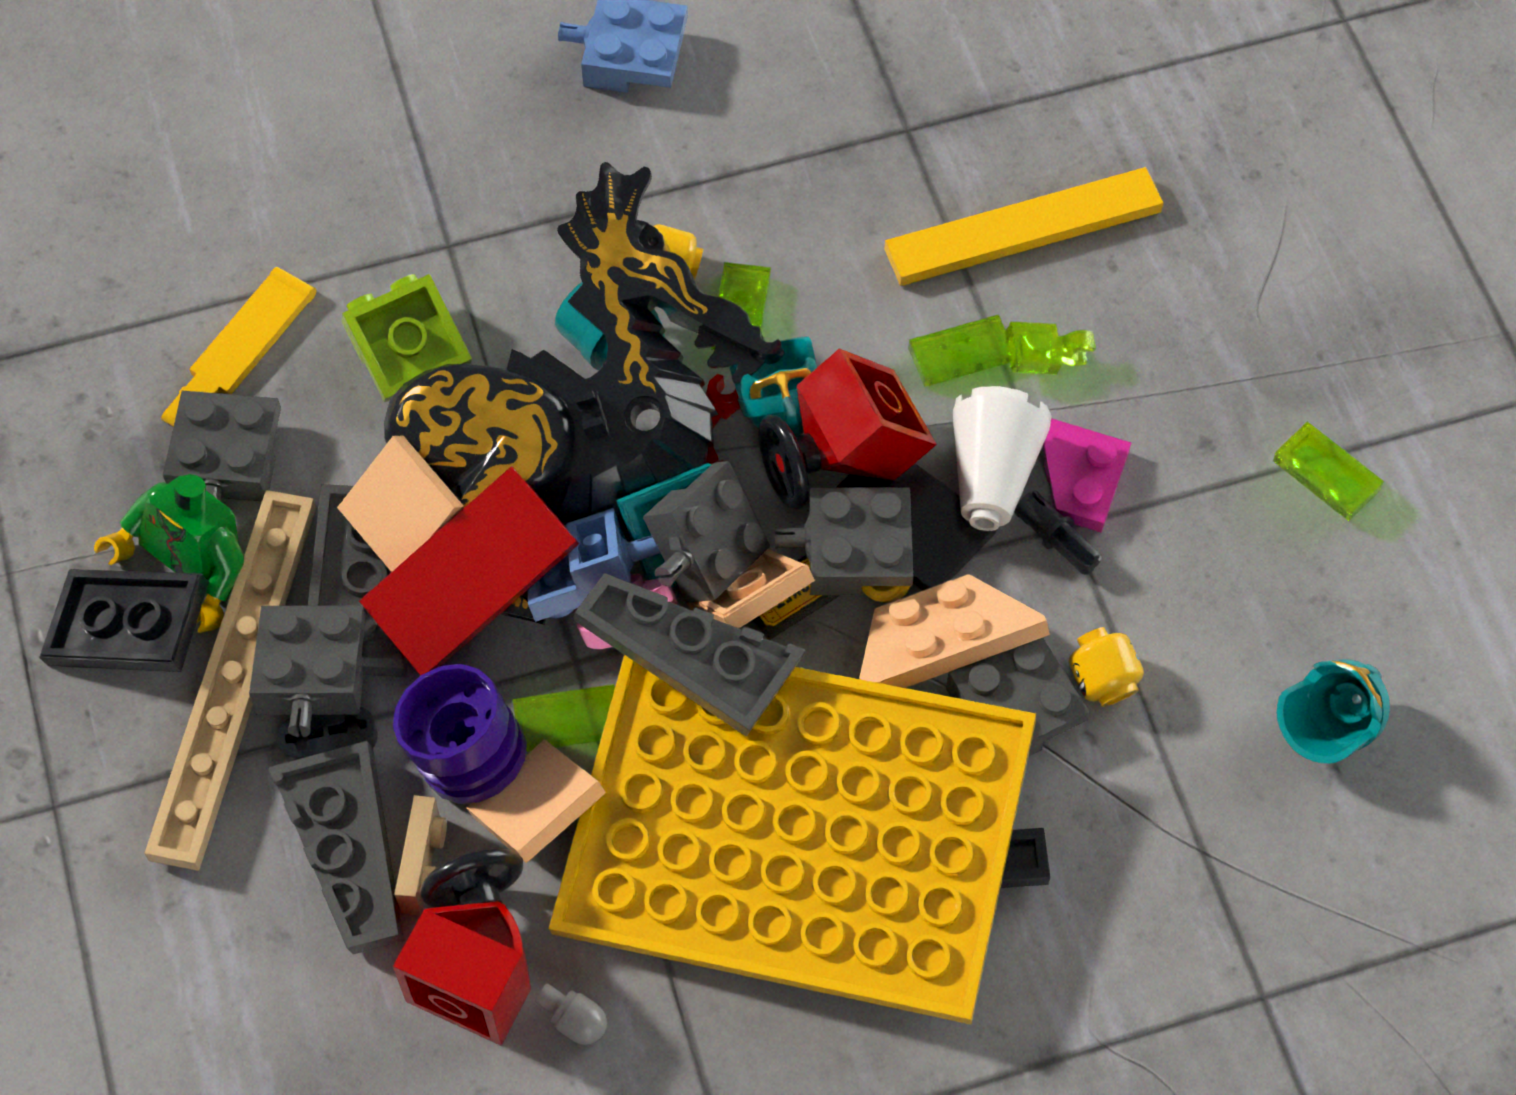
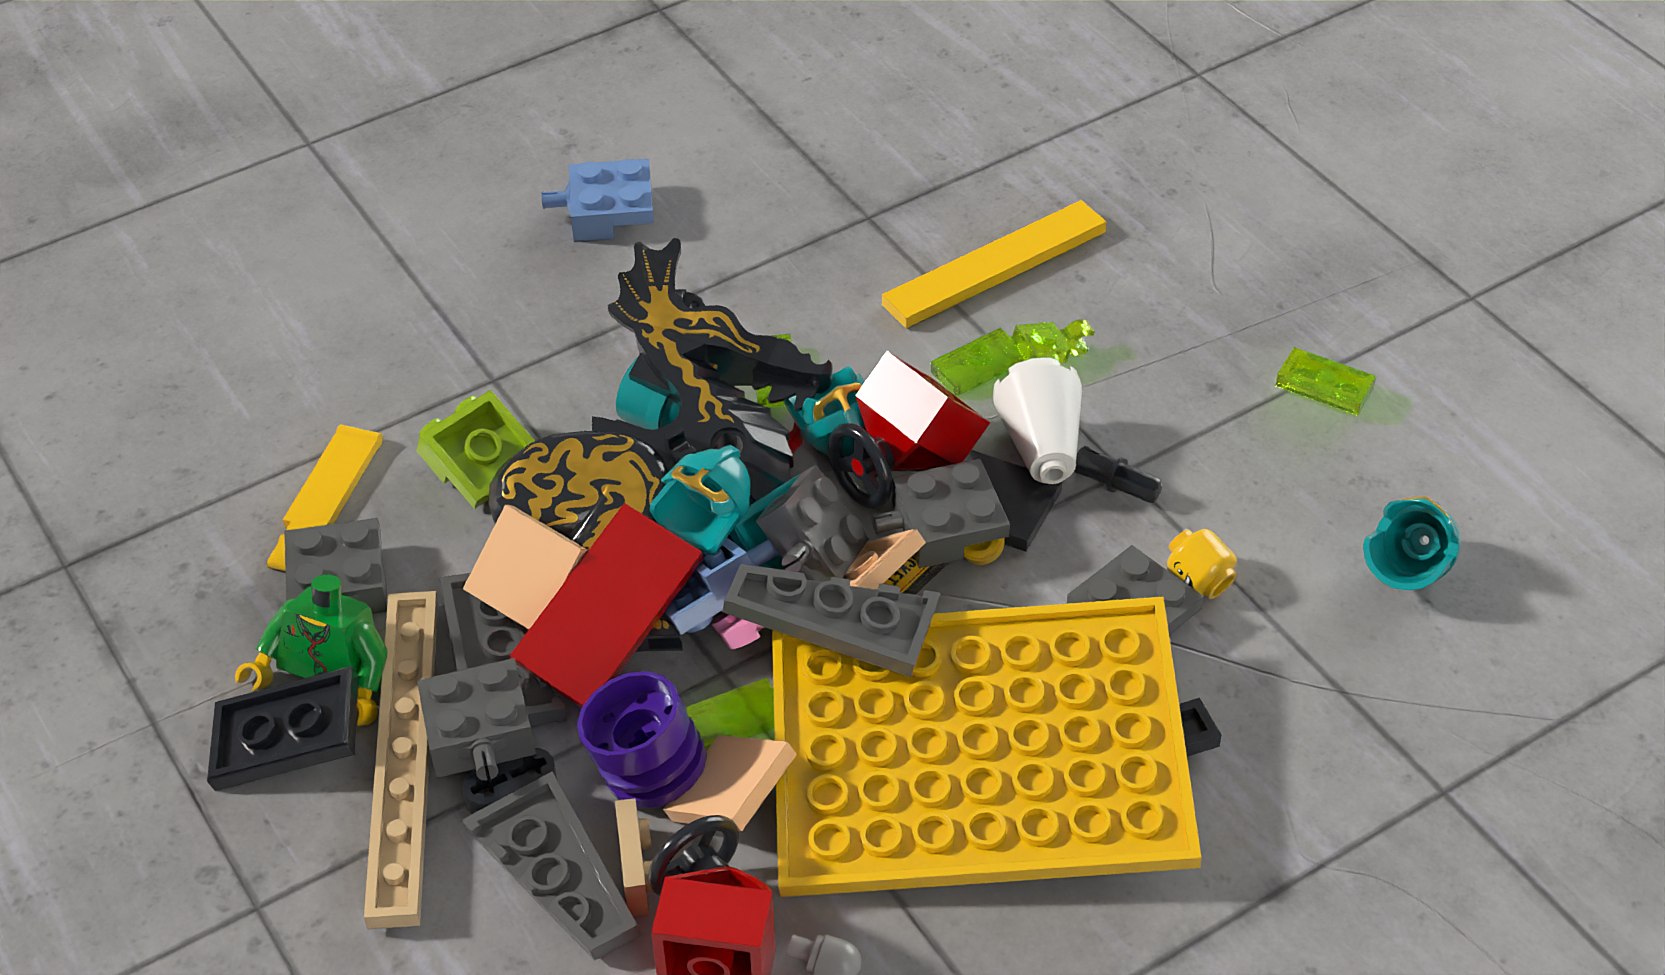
camera: 15 degrees left, 15 degrees down
(596, 478) = (704, 497): none -> teal helmet
(945, 631) = (1056, 561): light nougat wing -> none
(1083, 472) = (1120, 426): dark pink wing -> none

